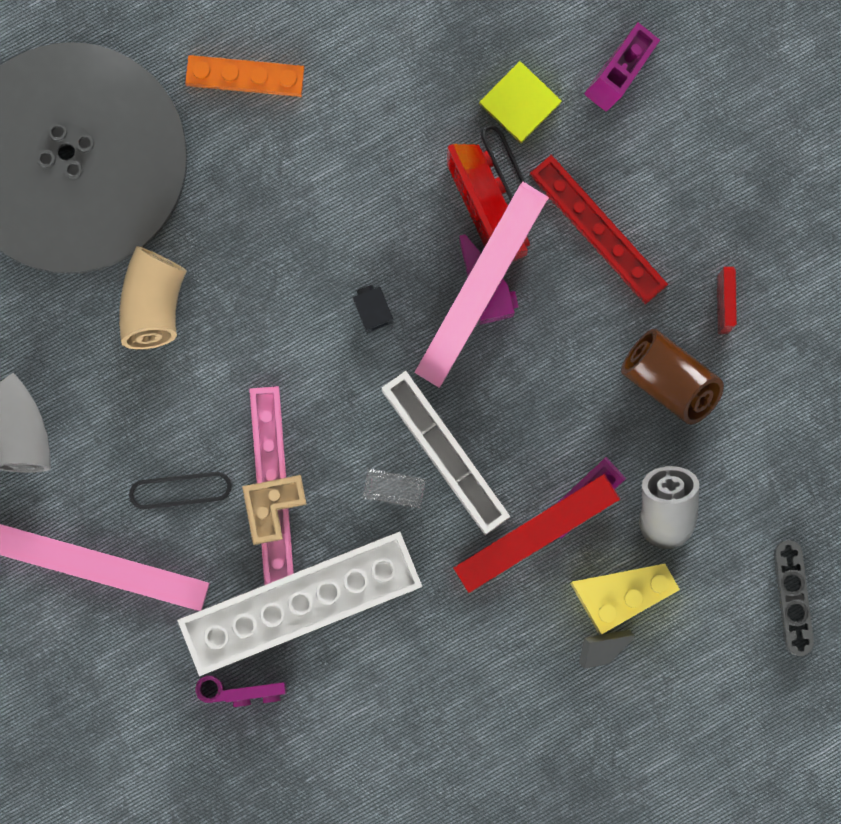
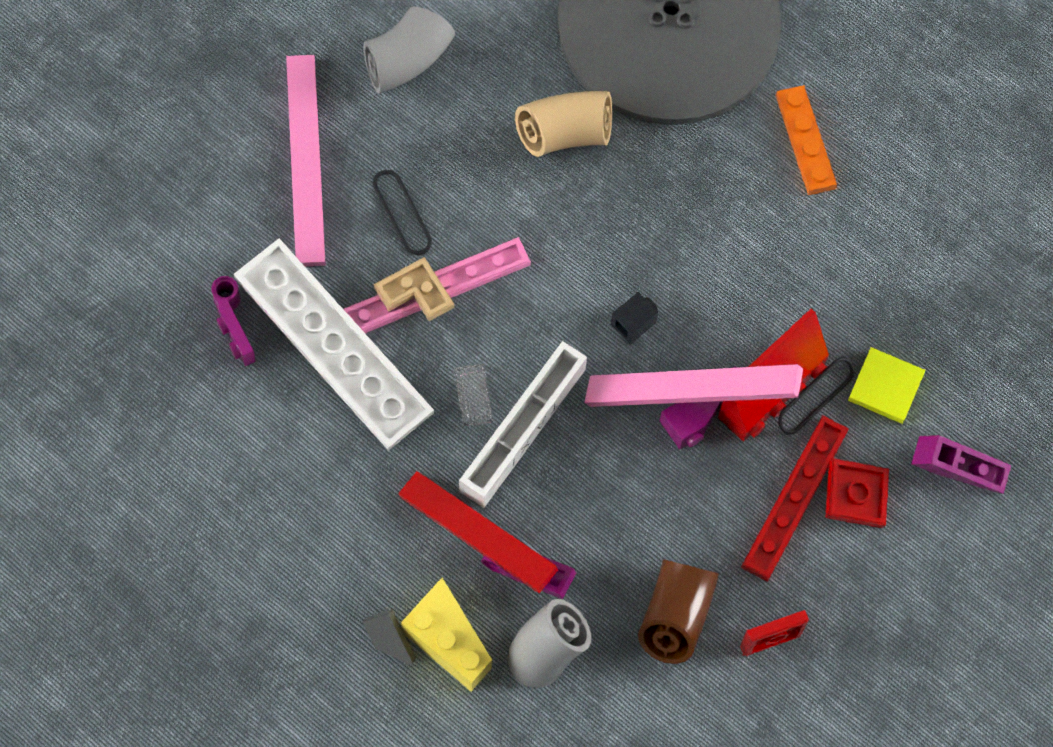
camera: 65 degrees right, 15 degrees down
(615, 172) = (857, 493): none -> red tile

